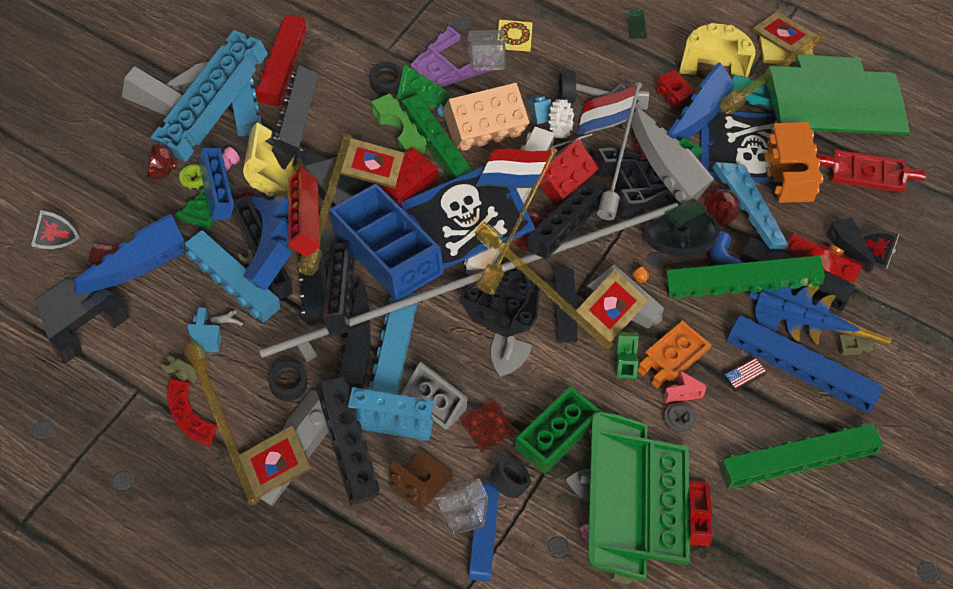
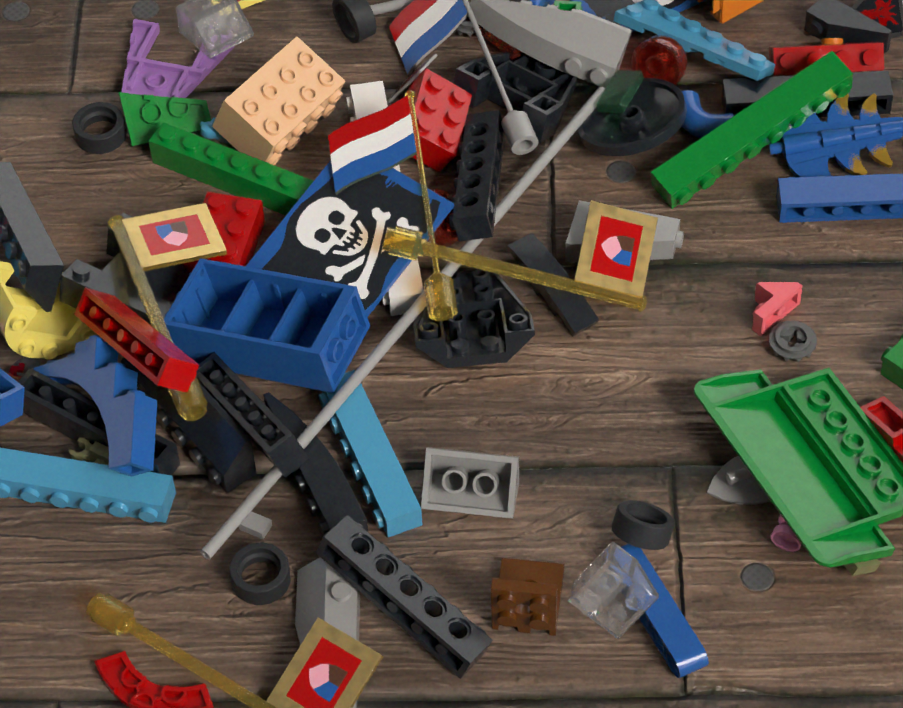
camera: 25 degrees left, 5 degrees down
(183, 370) = (103, 638): olive plate -> none
(205, 335) = (102, 577): dark azure brick -> none
(227, 318) = (112, 544): light grey bar -> none
(388, 111) = (135, 167): bright green arch -> none
(392, 413) = (443, 511): dark azure fence -> none
(487, 426) = (562, 483): clear red tile -> none
(508, 354) = (521, 383): light grey shield -> none
(539, 108) = (342, 58): dark azure slope -> none
(556, 430) = (657, 436): green brick -> none
(561, 118) = (377, 58): white gear -> none
(626, 355) = (673, 304): green brick -> none
(641, 275) = (619, 197): orange hinge -> none
(673, 353) = (728, 269): orange tile -> none
(745, 374) = (831, 248): tile -> none

